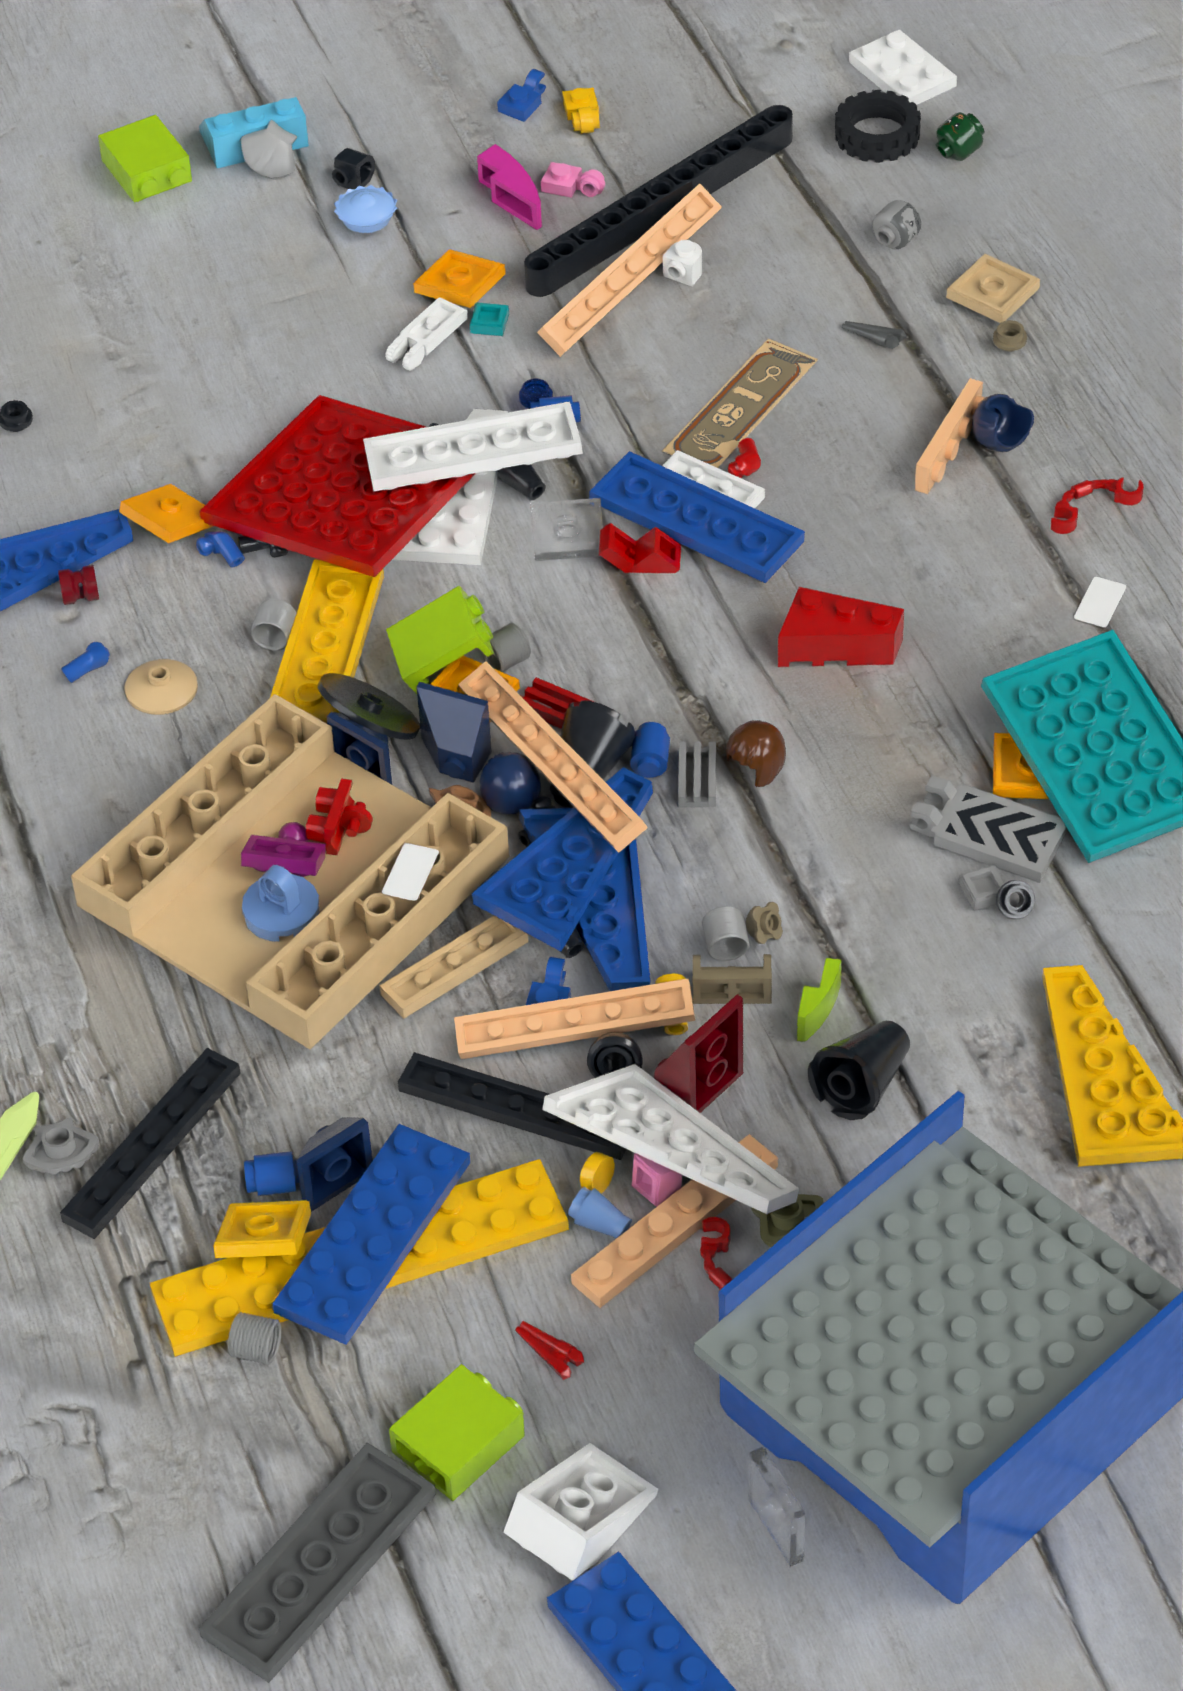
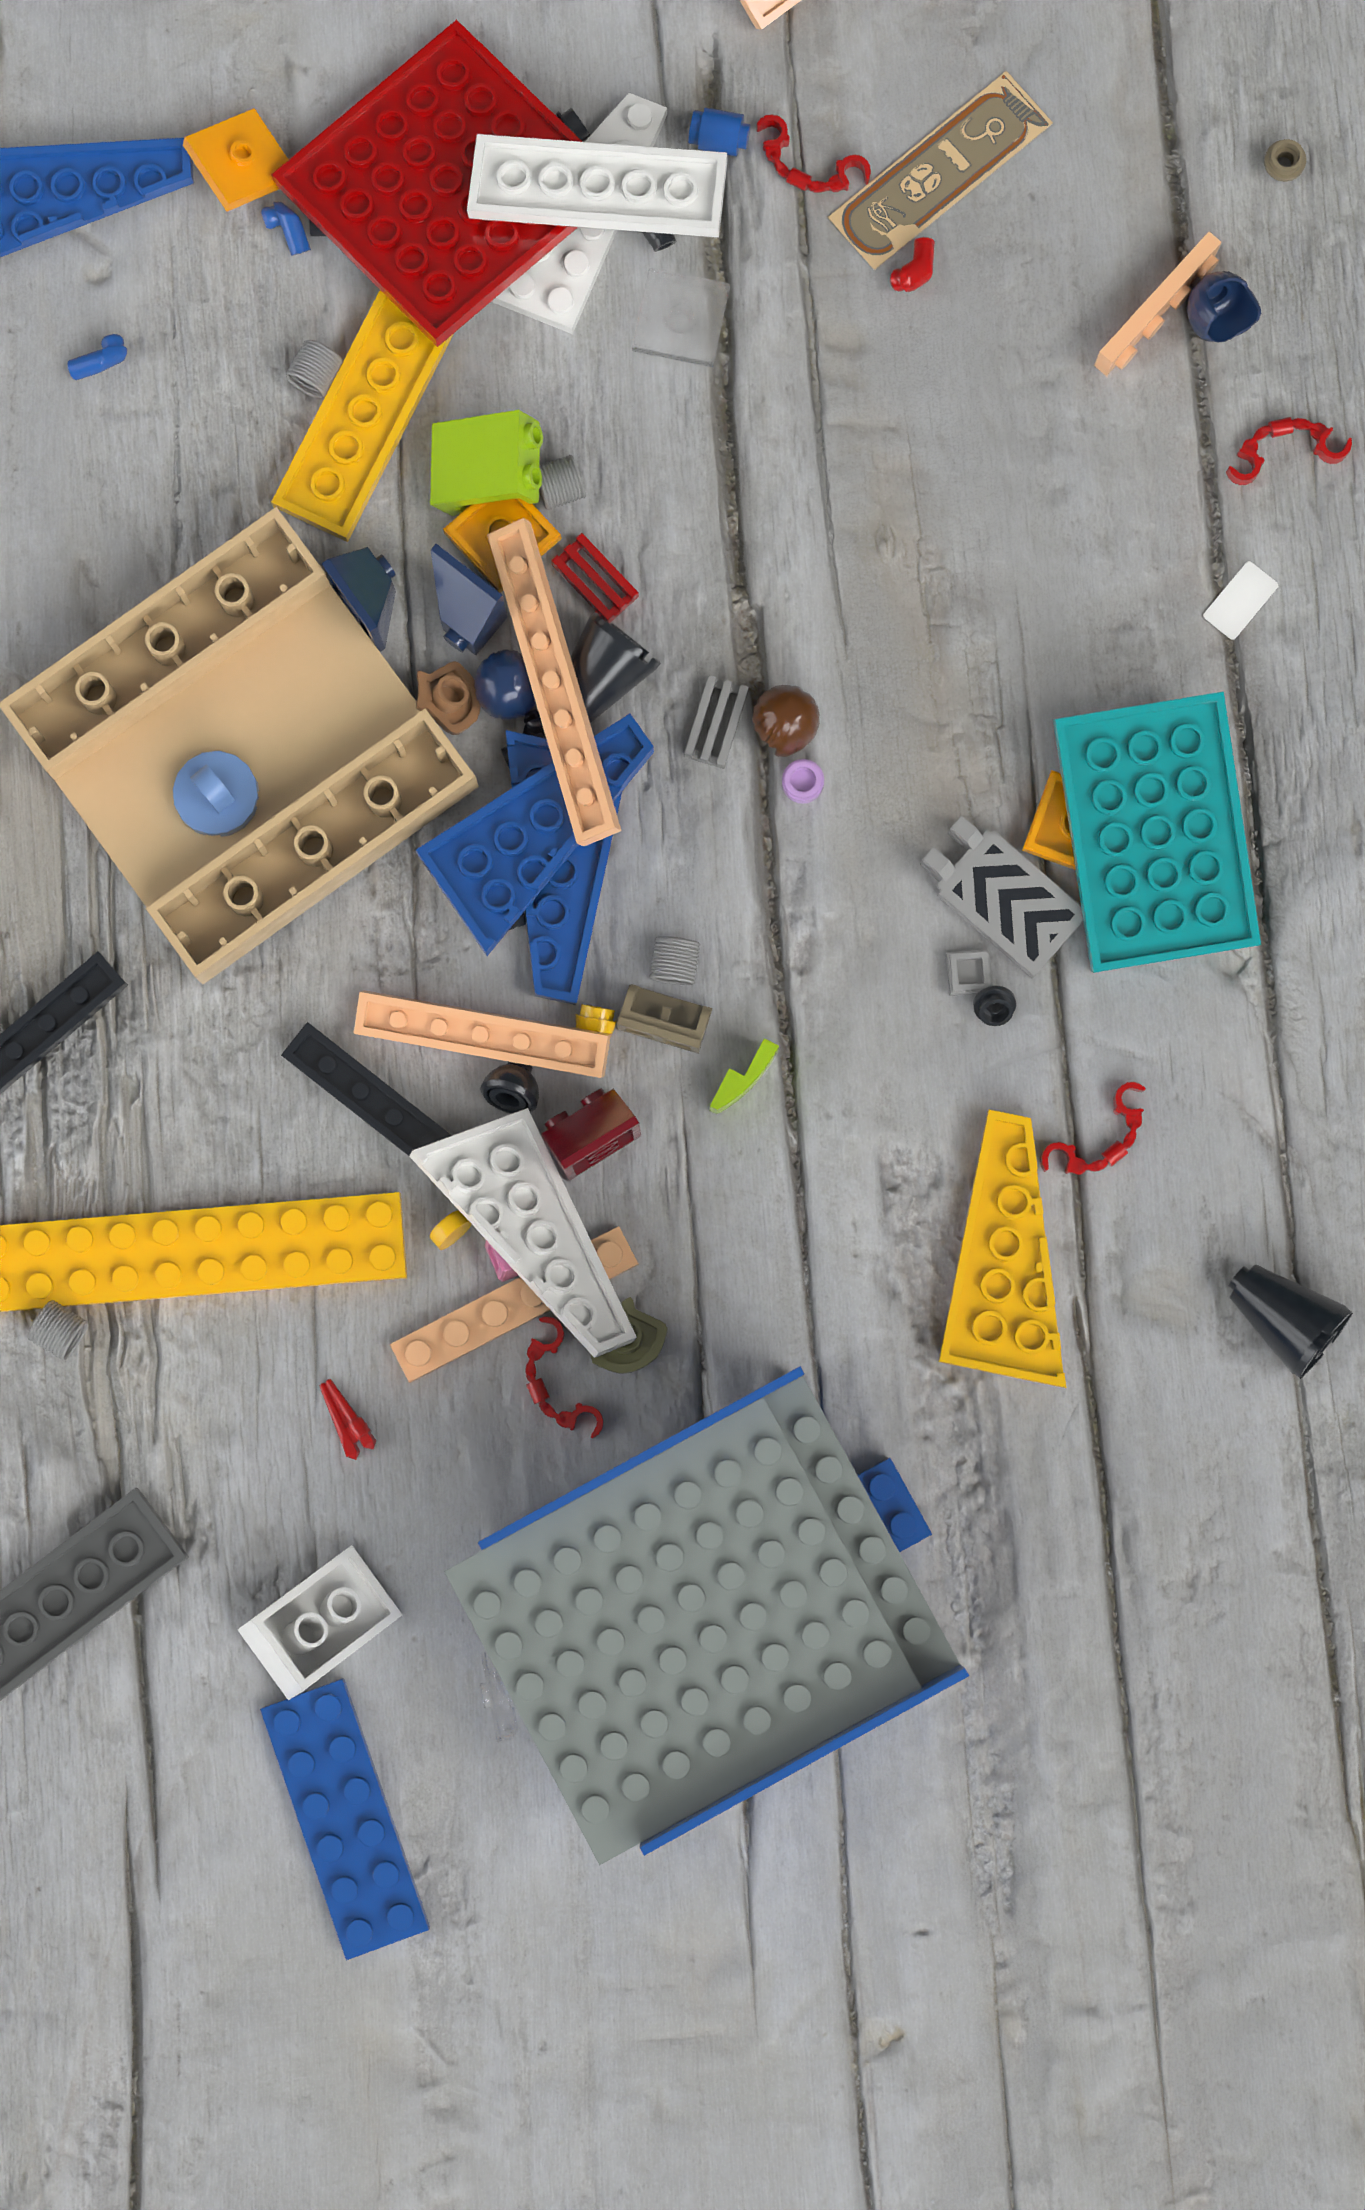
camera: 15 degrees right, 35 degrees up
(70, 584) = (114, 241): dark red wheel -> none
(161, 686) = (184, 429): tan dish -> none
(262, 1229) = (96, 1203): yellow plate -> none
(271, 1174) = (126, 1132): blue brick -> none
(289, 851) = (237, 727): magenta plate -> none
(334, 1160) = (185, 1137): dark blue slope -> none
(342, 818) = (312, 676): red hips -> none
(369, 706) = (380, 536): black piece -> none
(371, 1234) = (203, 1244): blue plate -> none
(410, 871) = (355, 809): white sticker -> none
(451, 965) = (372, 915): tan plate -> none
(457, 1431) = (226, 1498): lime brick -> none
(533, 390) = (703, 79): clear blue plate -> none
(553, 987) = (467, 985): blue plate -> none
(597, 1213) = (437, 1279): medium blue cone -> none
(603, 417) = (799, 178): none -> red piece
(649, 554) = (752, 378): red slope -> none
(650, 750) = (673, 680): blue brick -> none
(698, 516) = (831, 341): blue plate -> none
(716, 479) = (865, 290): white tile -> none
(764, 923) = (720, 957): dark tan plate -> none
(786, 795) = (802, 781): none -> lavender tile
(839, 629) = (931, 569): red wedge -> none
(858, 1069) = (759, 1184): black cone -> none
(880, 335) = (1138, 108): dark grey piece -> none
(993, 288) = (1293, 75): tan plate -> none
(1164, 981) = (1112, 1154): none -> red piece

